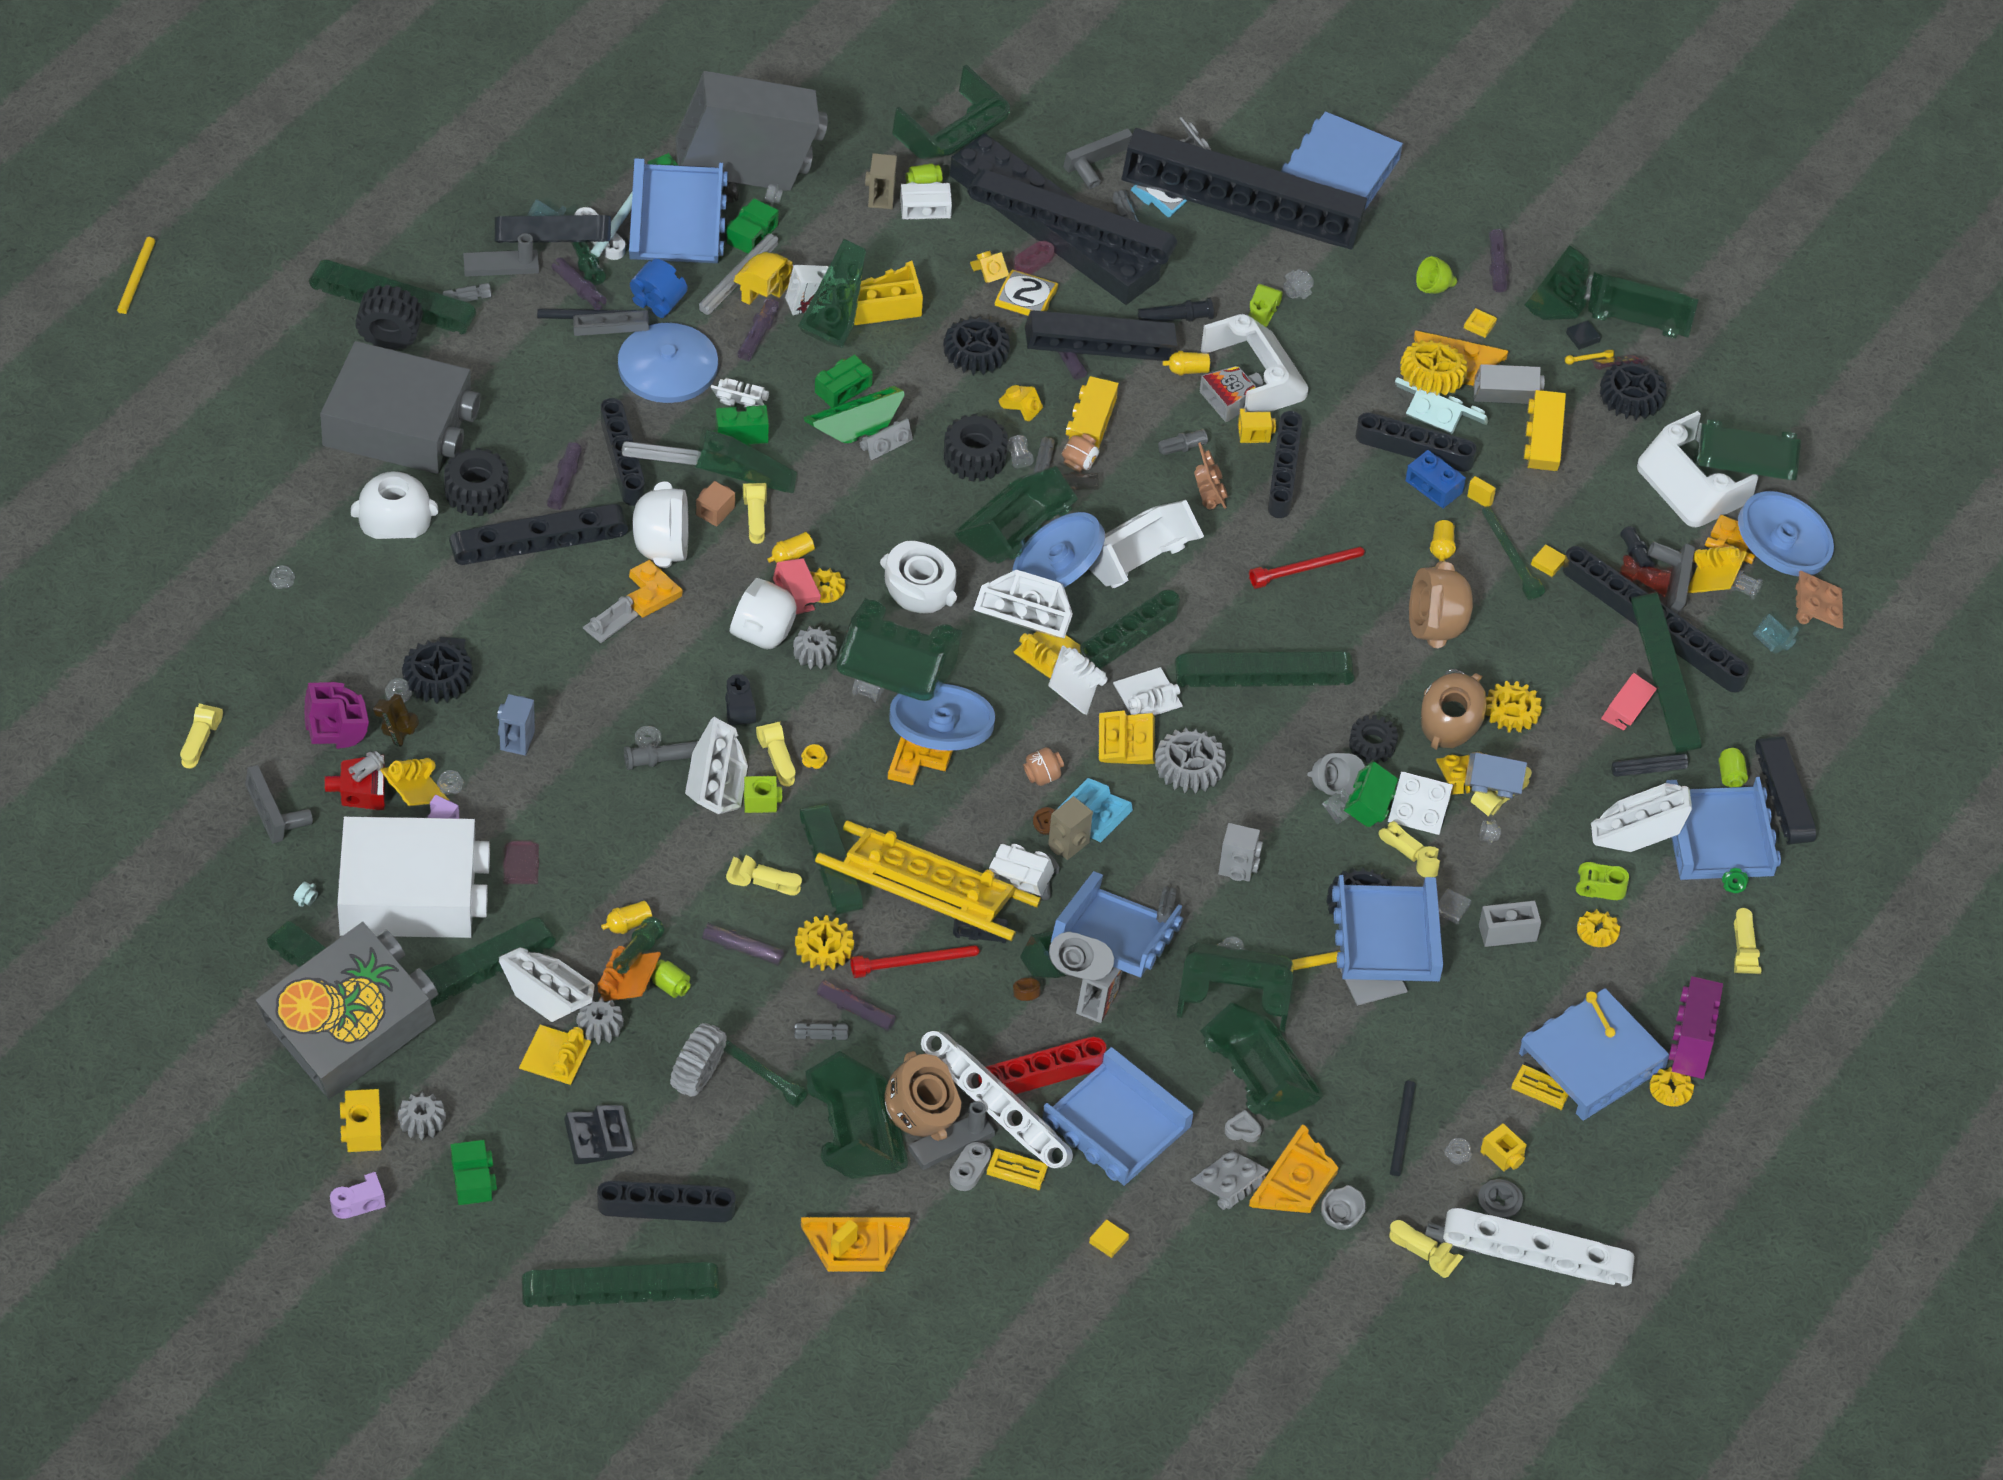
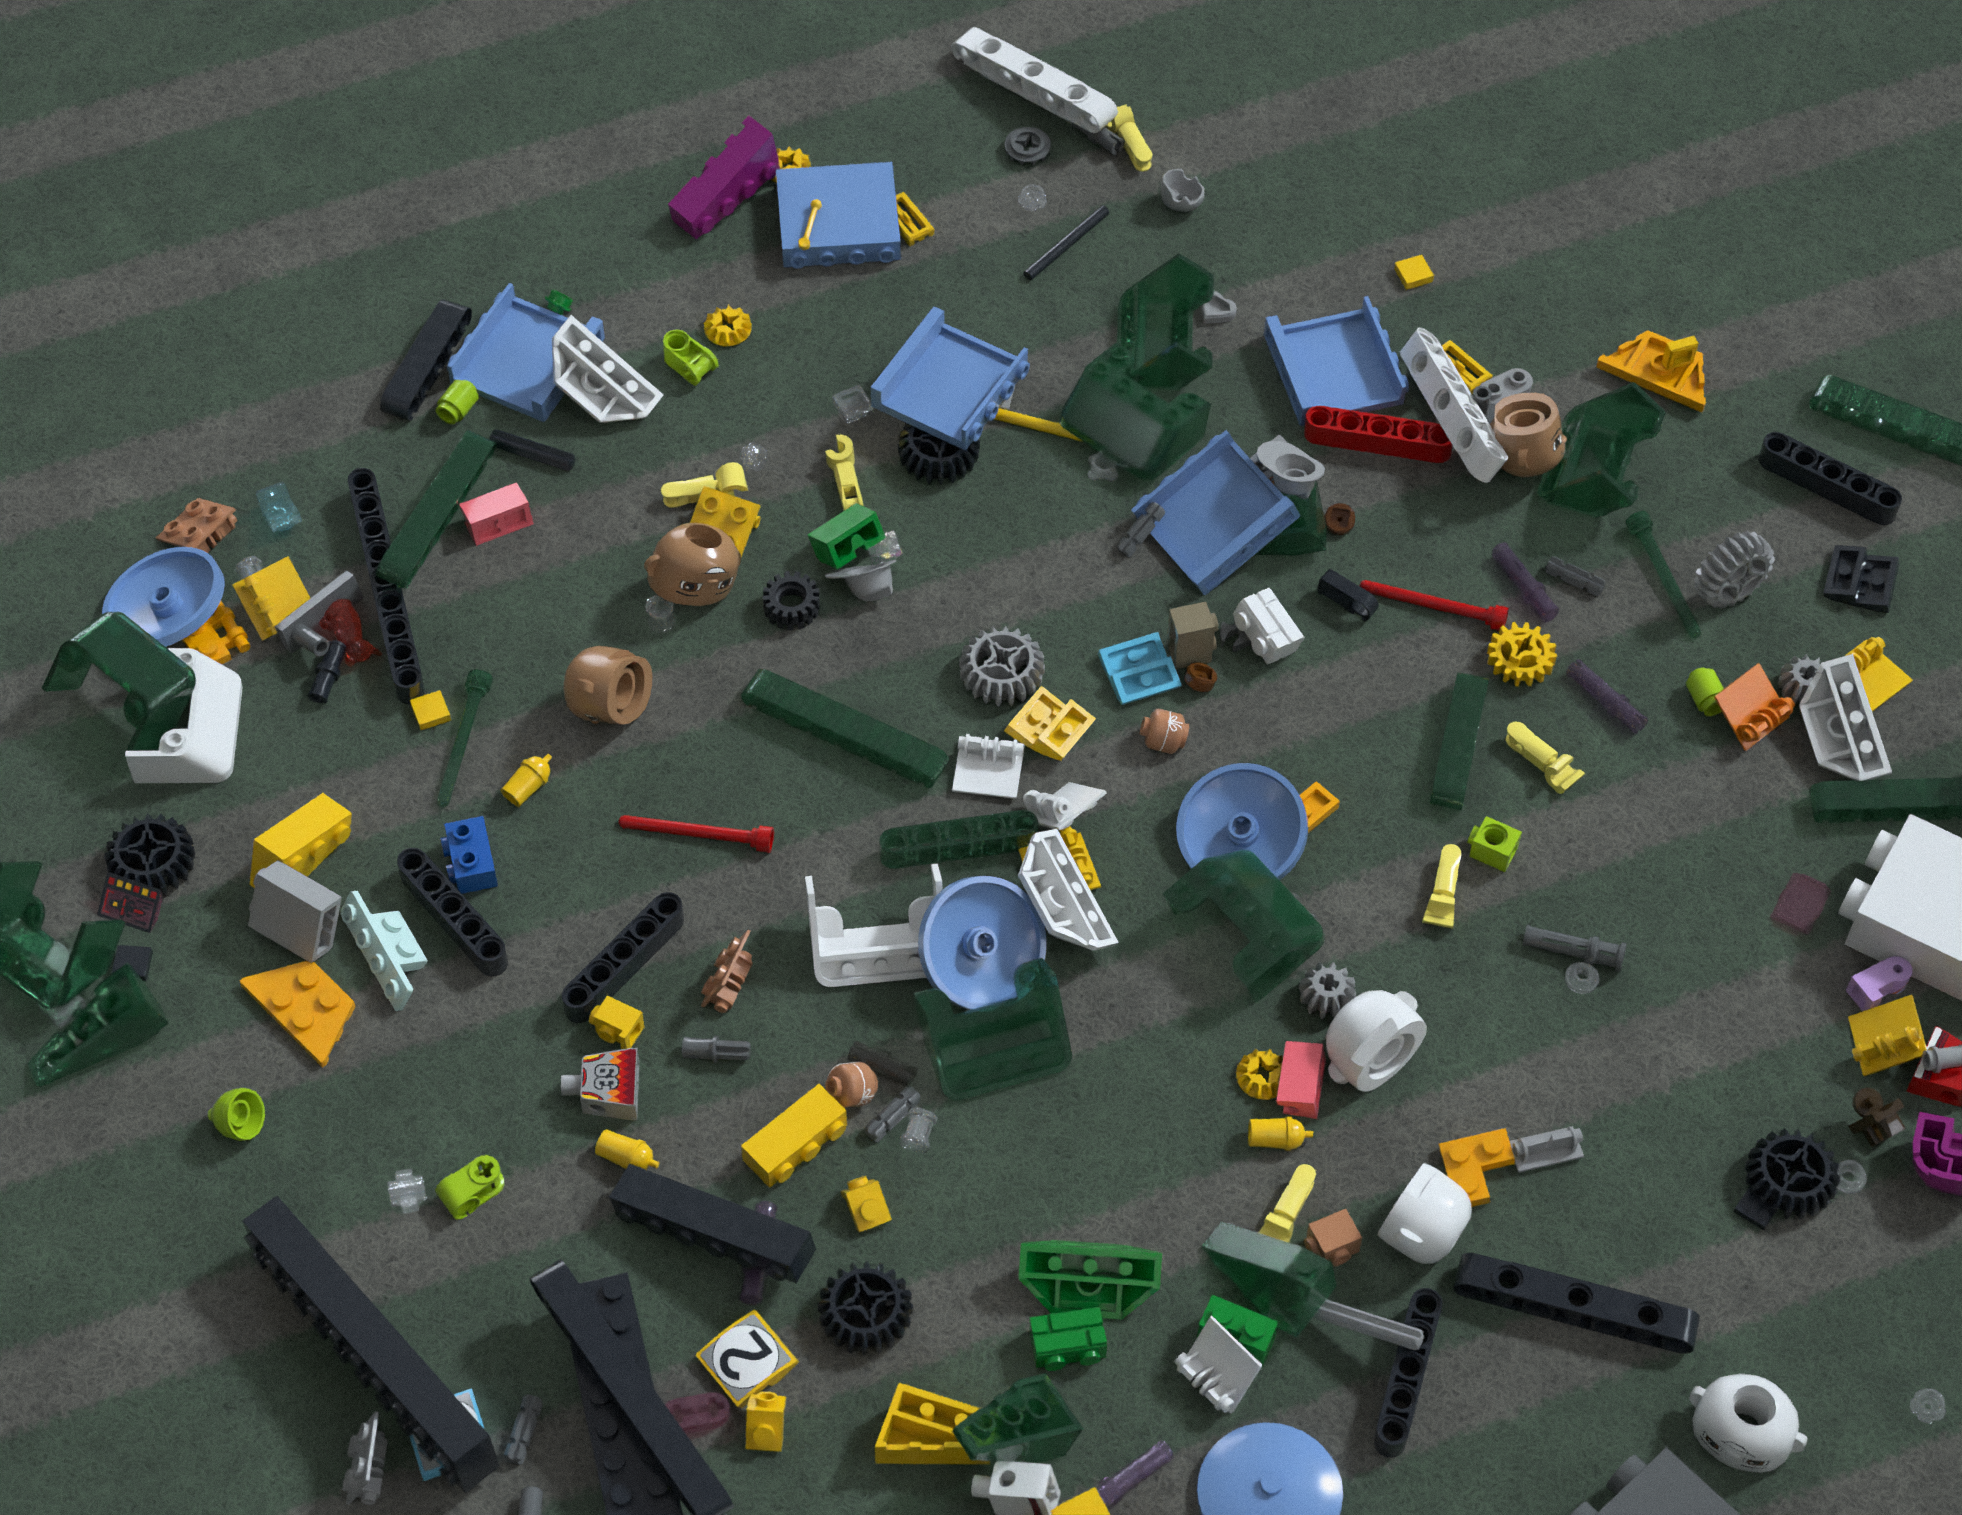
camera: 145 degrees left, 5 degrees up
(447, 777) = (1842, 1022): clear plate -> none
(476, 496) = (1624, 1385): black tyre -> none
(516, 724) = (1738, 1039): sand blue brick -> none
(566, 469) = (1488, 1389): clear purple pin -> none
(627, 917) = (1718, 778): yellow piece -> none
(642, 940) = (1719, 734): clear green pin -> none
(717, 769) = (1538, 880): white wedge -> none
(739, 701) = (1454, 966): black piece -> none
(814, 751) = (1409, 859): yellow plate -> none
(887, 439) = (1078, 1230): light grey hinge -> none
(919, 577) = (1159, 973): white piece -> none
(971, 461) = (974, 1177): black tyre -> none
(975, 892) = (1376, 664): yellow piece -> none
(1187, 311) = (567, 1229): black pin -> none
(1231, 1178) = (1264, 266): light grey hinge -> none
(1240, 852) = (1033, 530): light grey brick -> none
(1282, 378) = (529, 1139): white windscreen -> none
(1297, 1177) = (1205, 237): light orange wing -> none
(1345, 157) = (201, 1347): medium blue panel -> none
(1420, 803) = (794, 515): white hinge -> none
(1433, 367) = (354, 987): yellow gear -> none
(1480, 323) = (233, 1040): yellow tile -> none
(1481, 492) = (434, 814): yellow tile -> none
(1495, 774) = (715, 469): sand blue brick -> none
(1498, 267) = (146, 1098): clear purple pin -> none
(1504, 1148) = (992, 176): yellow brick -> none
(1509, 923) = (817, 350): light grey brick -> none
(1513, 706) = (617, 564): yellow gear -> none
(1607, 353) = (177, 940): yellow hinge -> none
(1747, 956) = (613, 231): light yellow piece -> none

